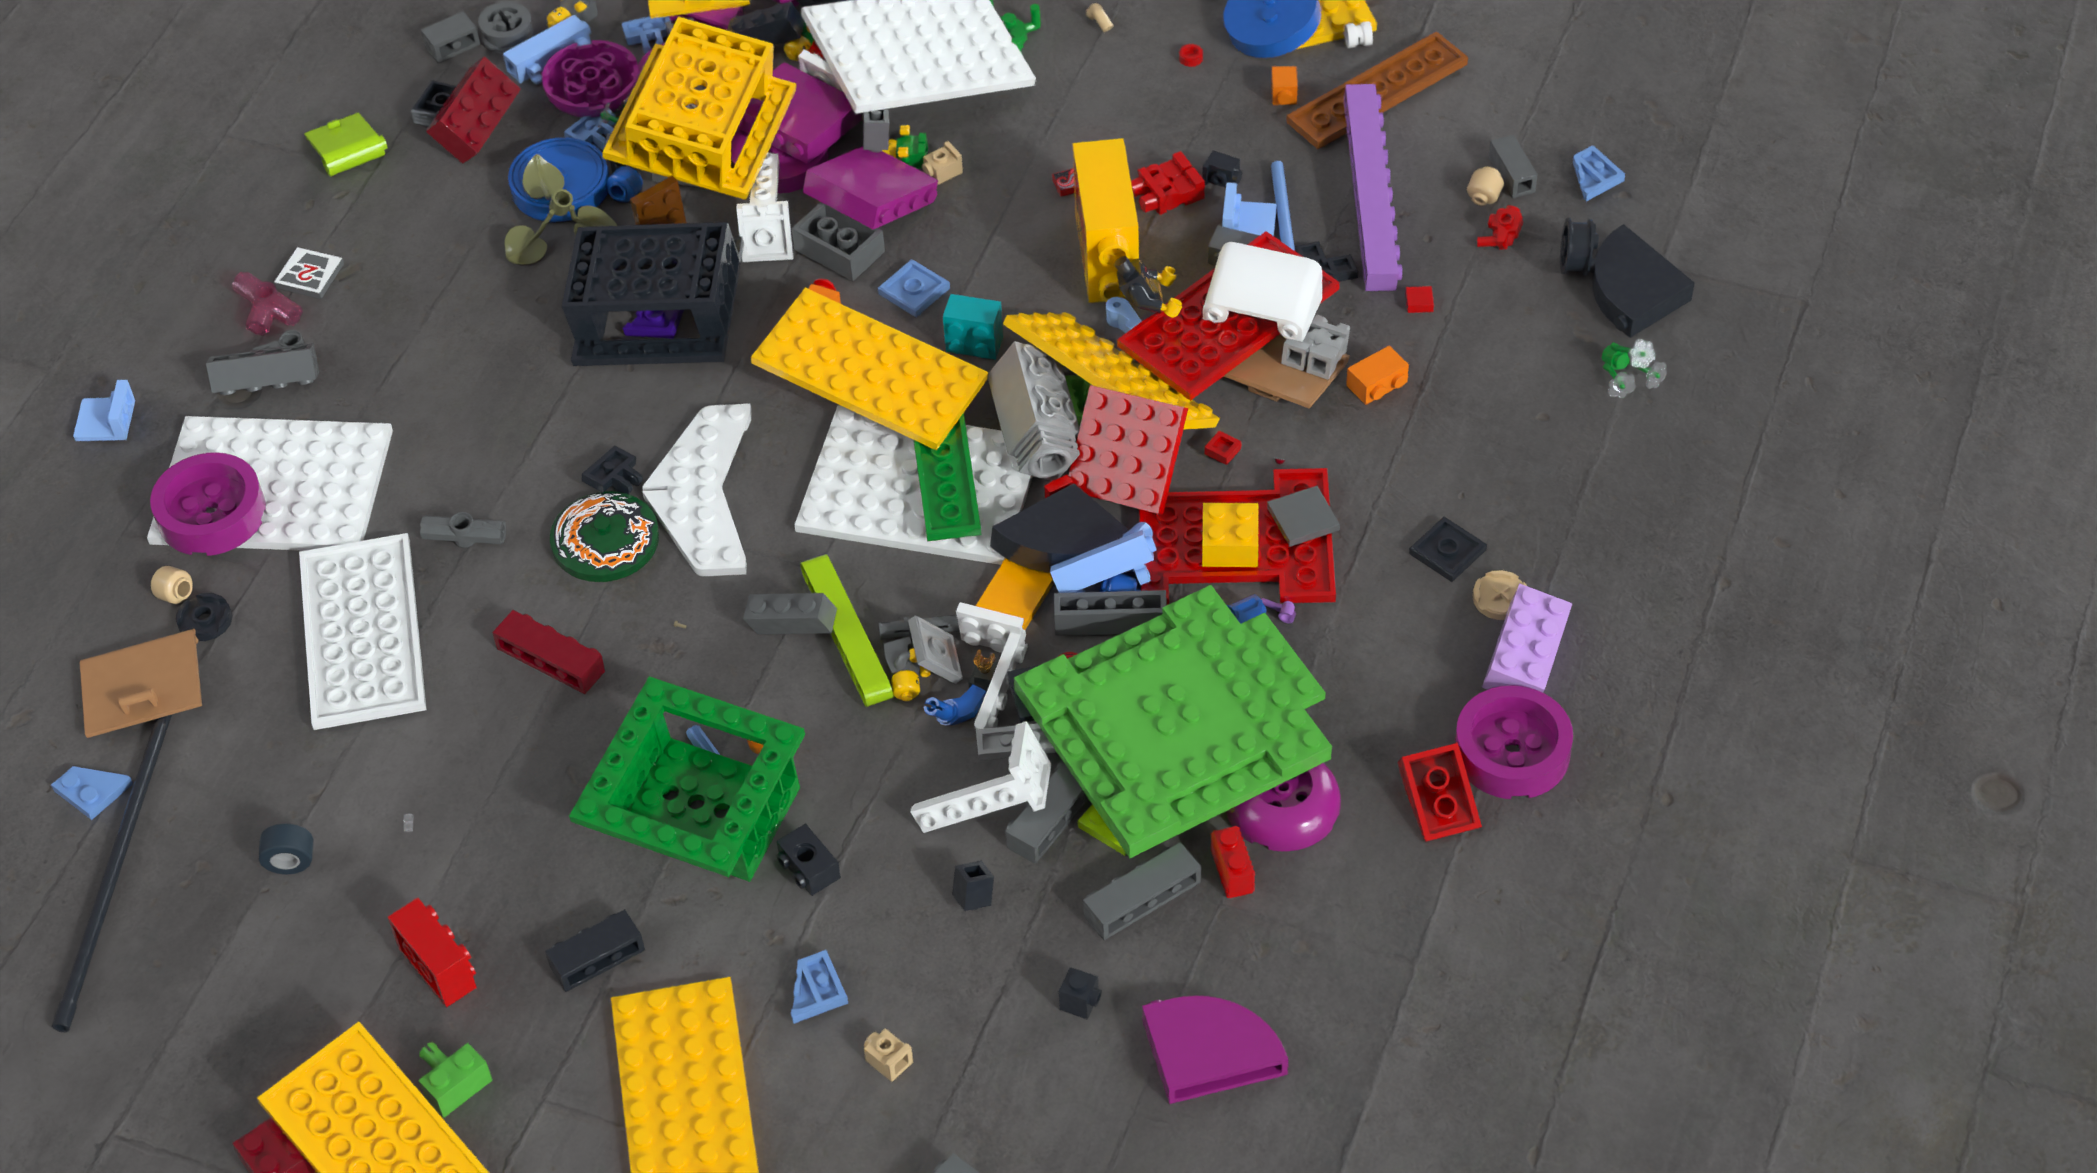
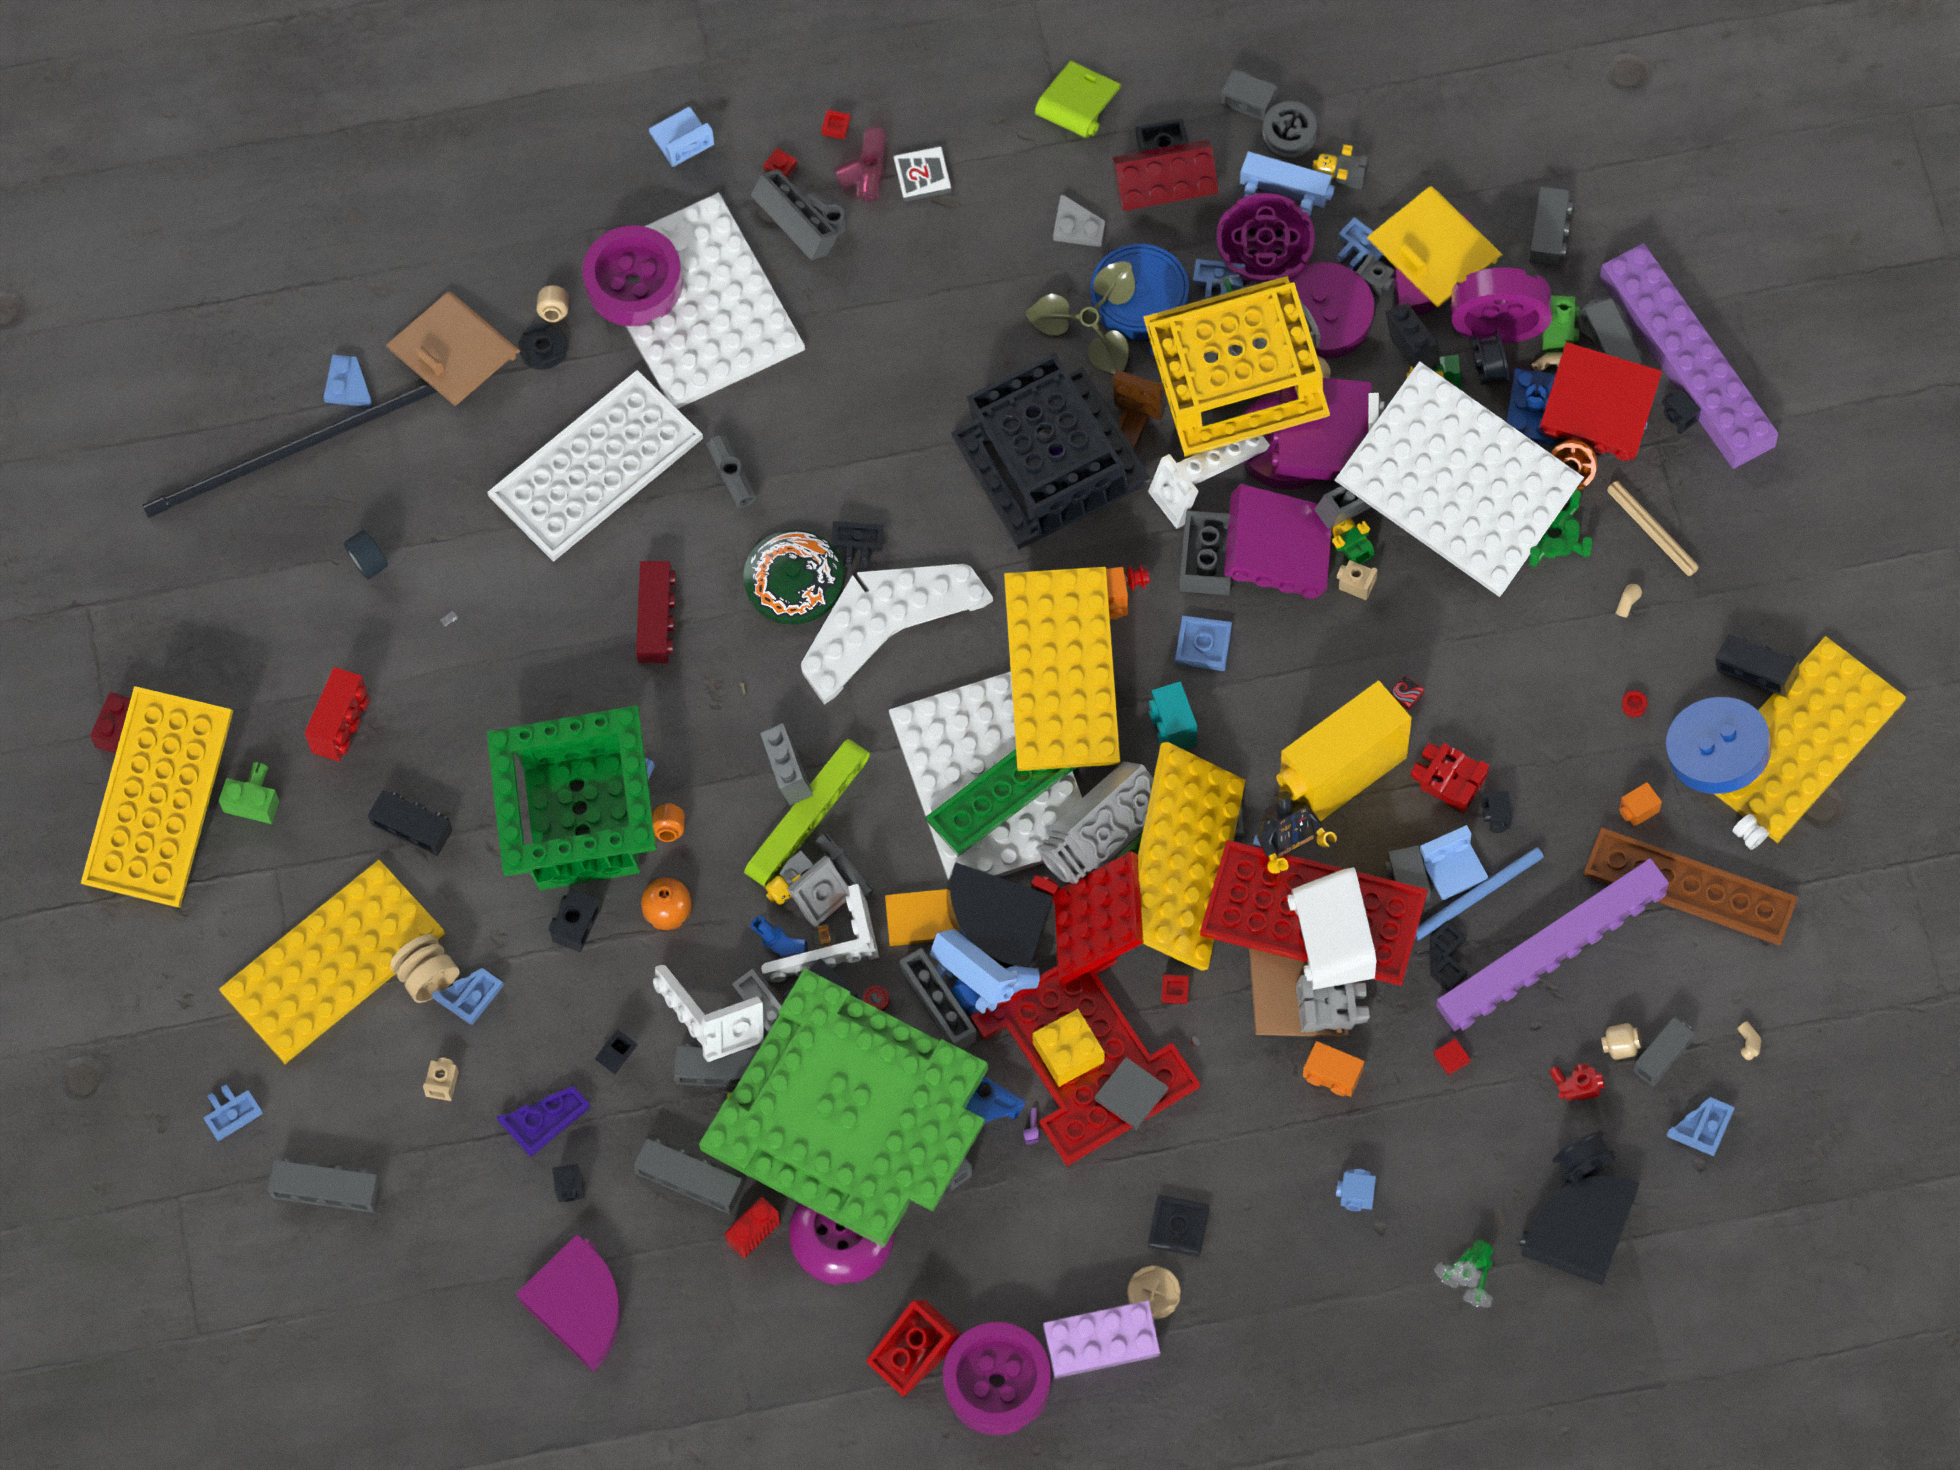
camera: 60 degrees right, 15 degrees up
(197, 363) = (781, 161): none -> red plate
(205, 306) = (836, 124): none -> red plate
(457, 195) = (1077, 224): none -> light grey wing
(762, 1004) = (424, 967): none -> tan wheel
(847, 780) = (666, 903): none -> orange cylinder
(995, 986) = (541, 1122): none -> dark purple wing
(1501, 409) = (1356, 1190): none -> medium blue brick
(1536, 113) = (1753, 1041): none -> tan arm

